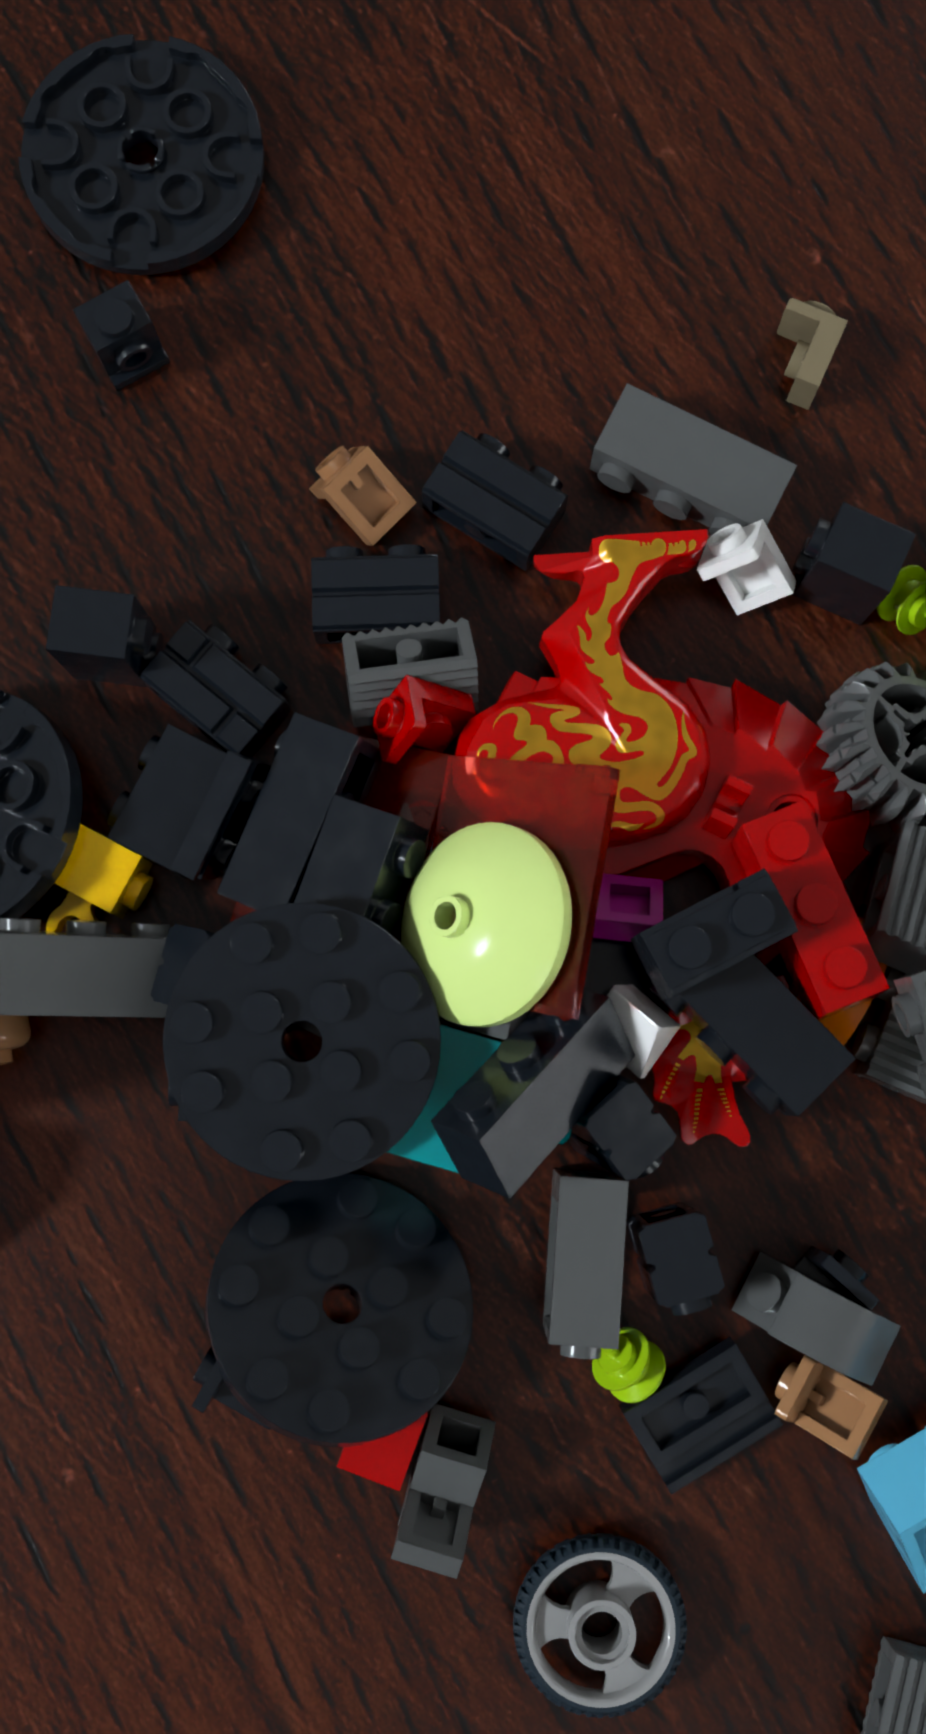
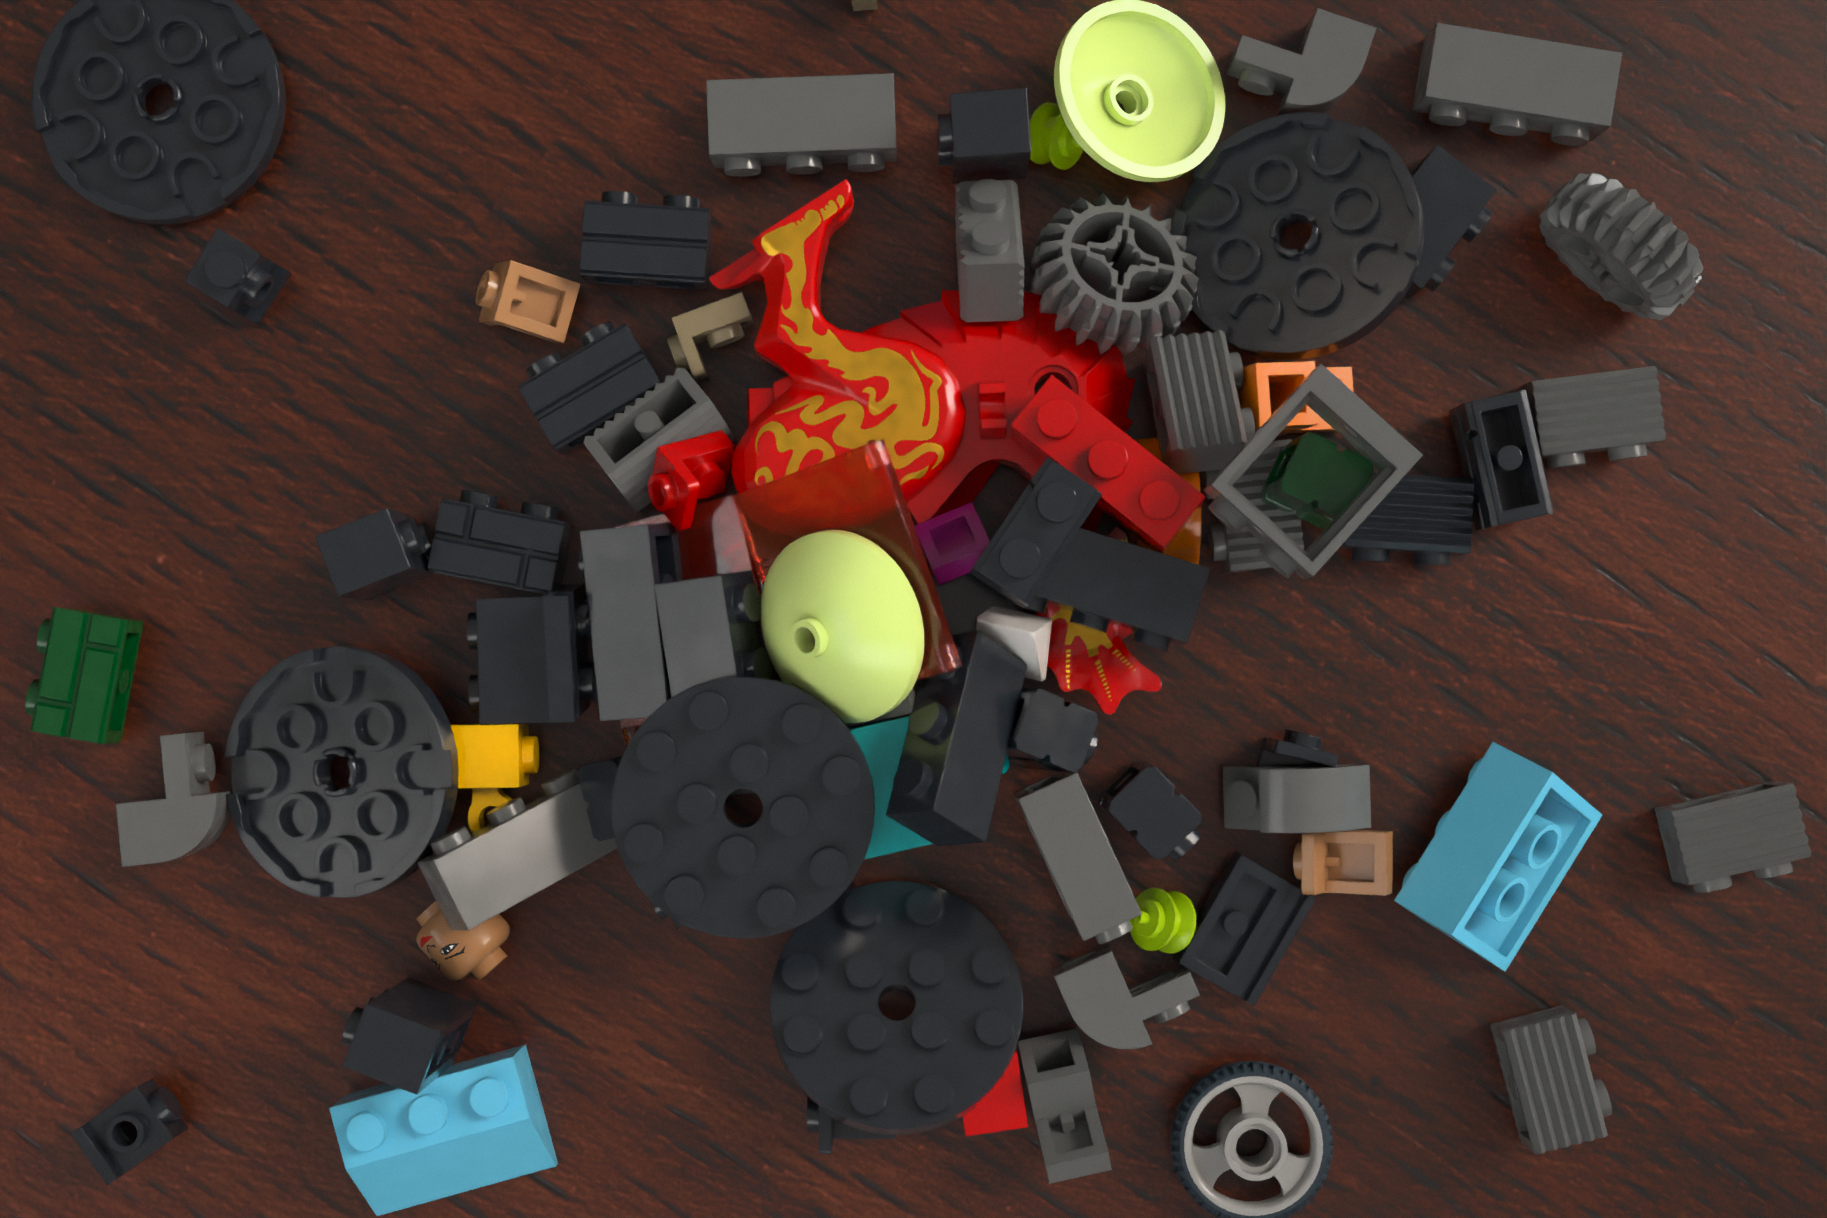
camera: 30 degrees left, 5 degrees up
(515, 598) = (716, 323): none -> dark tan bracket
(538, 1427) = (1110, 1009): none -> dark grey brick
(747, 566) = (898, 185): white bracket -> none
(799, 665) = (989, 251): none -> dark grey brick

